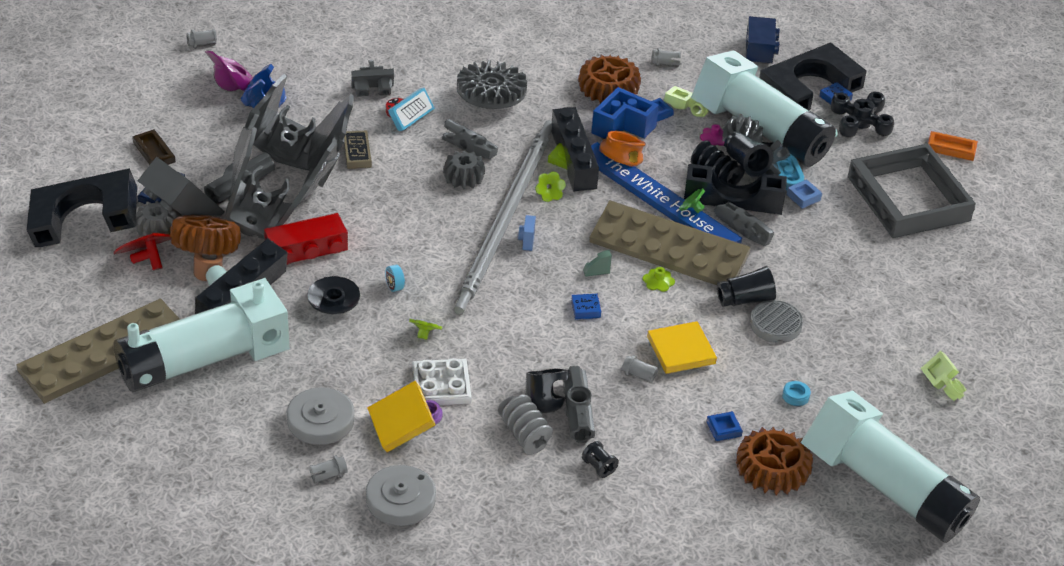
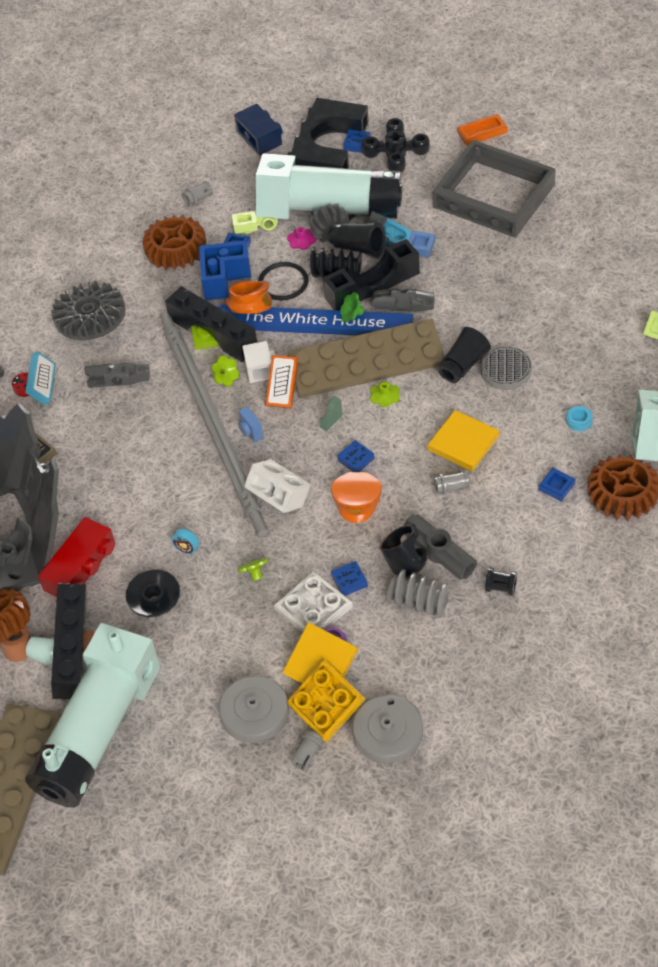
camera: 30 degrees left, 10 degrees up
(376, 445) = (326, 700): none -> yellow tile
(464, 169) = (141, 403): dark grey gear -> none
(488, 382) = (349, 578): none -> blue tile
(500, 283) = (277, 485): none -> white brick
(554, 330) = (356, 495): none -> orange hat
(582, 195) = (258, 361): none -> white brick
(583, 218) = (282, 381): none -> tile
(663, 170) = (286, 264): none -> black tyre

